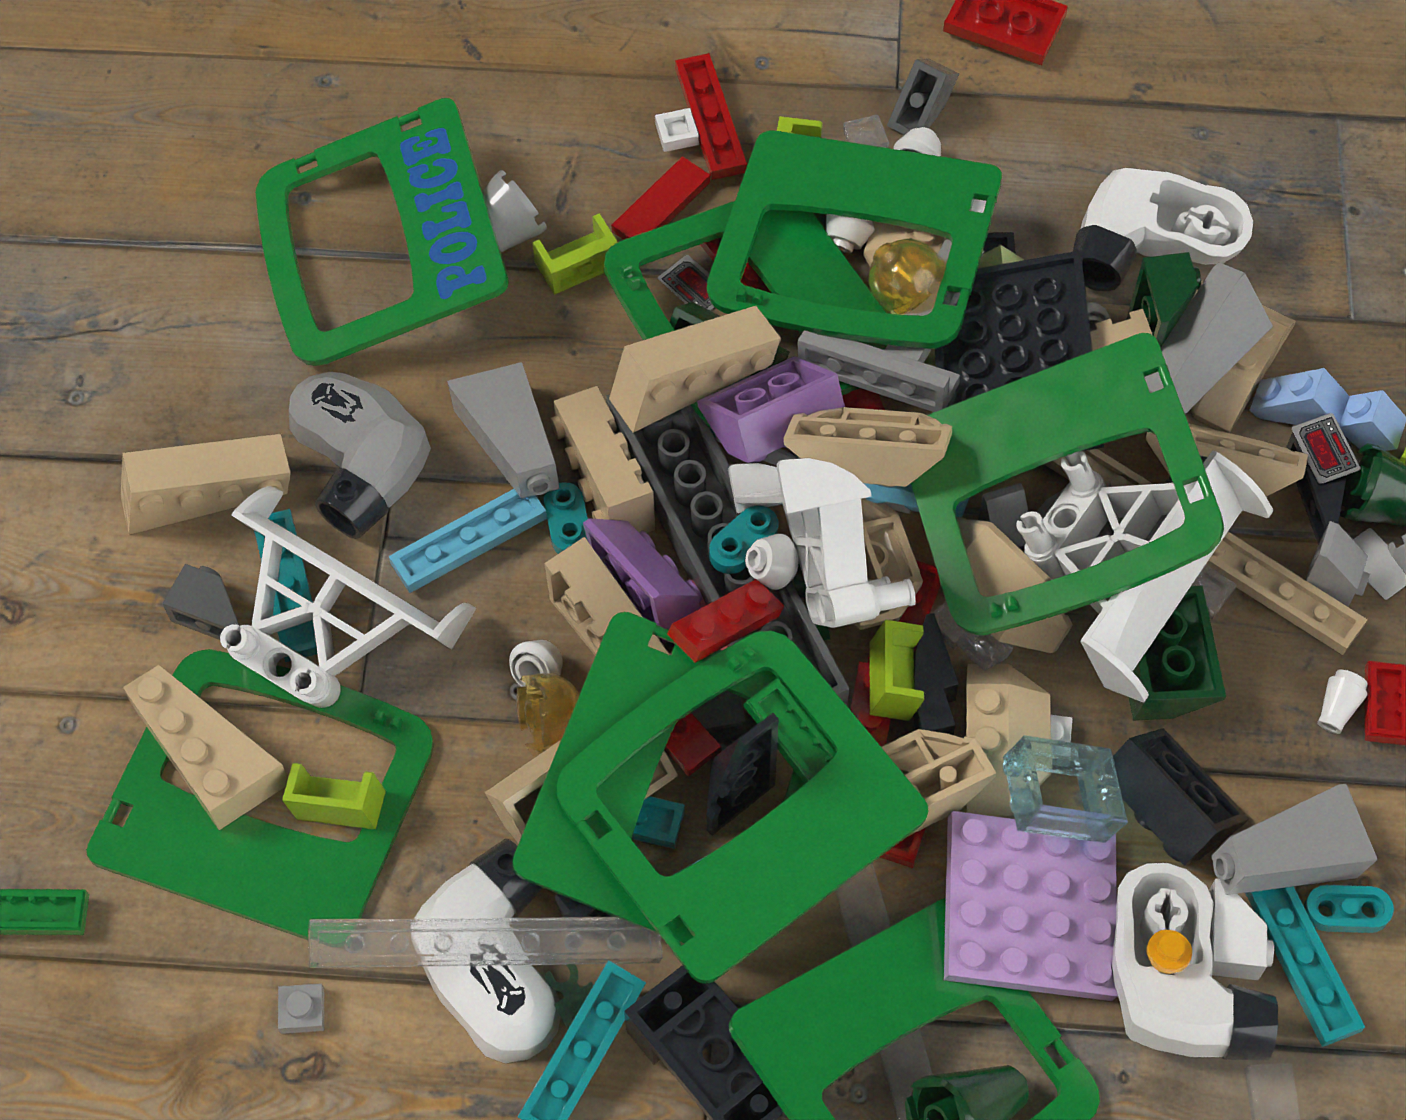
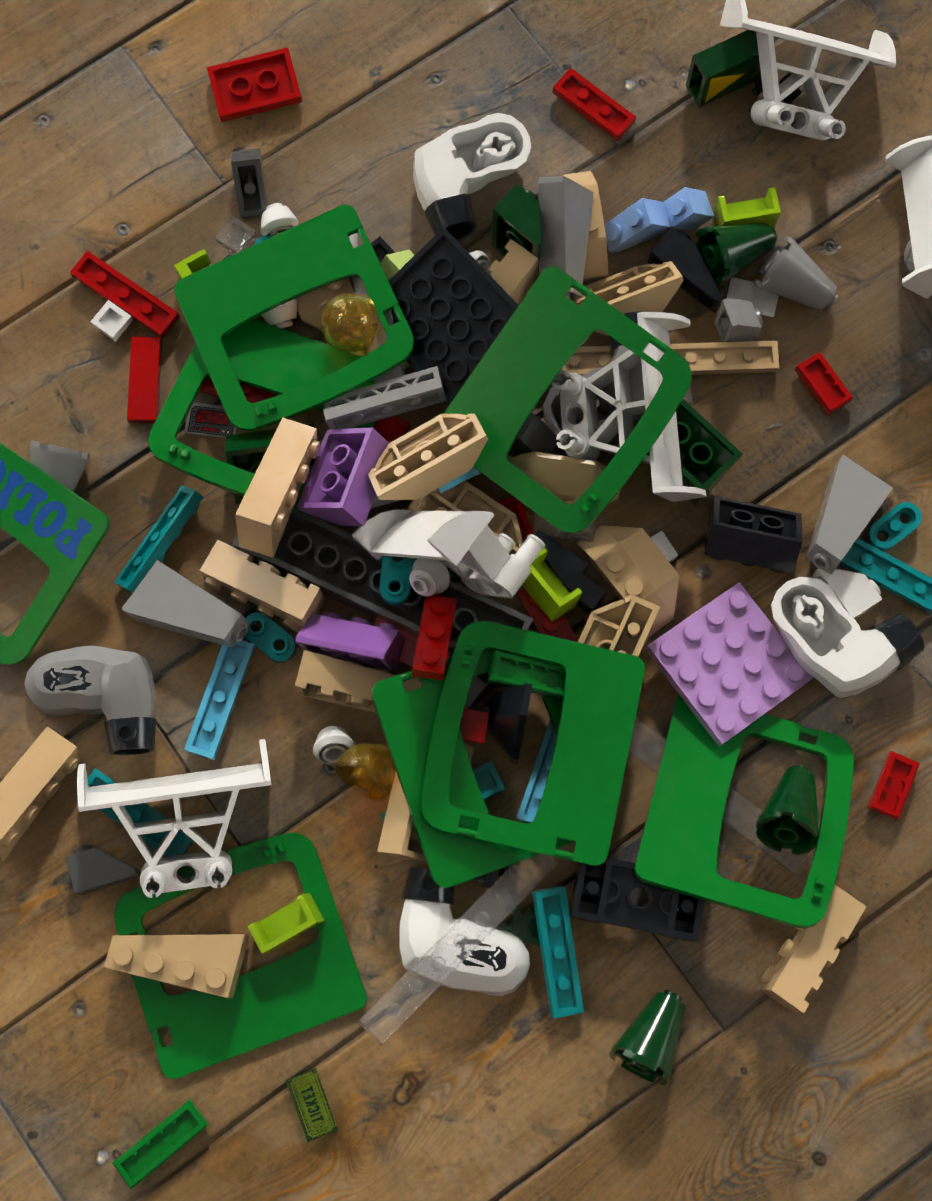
camera: 40 degrees left, 15 degrees up
(197, 1000) = (312, 1105): none -> clear green tile
(300, 1008) = (375, 1059): light grey plate -> none
(558, 348) = (160, 537): none -> teal plate
(575, 260) = (124, 458): lime panel -> none
(1097, 781) = (704, 557): clear light blue window -> none
(1169, 951) = (833, 636): light orange plate -> none
(1326, 448) = (679, 248): sticker -> none
(1341, 700) = (798, 400): white cone -> none
(1352, 260) = (594, 104): none -> red plate

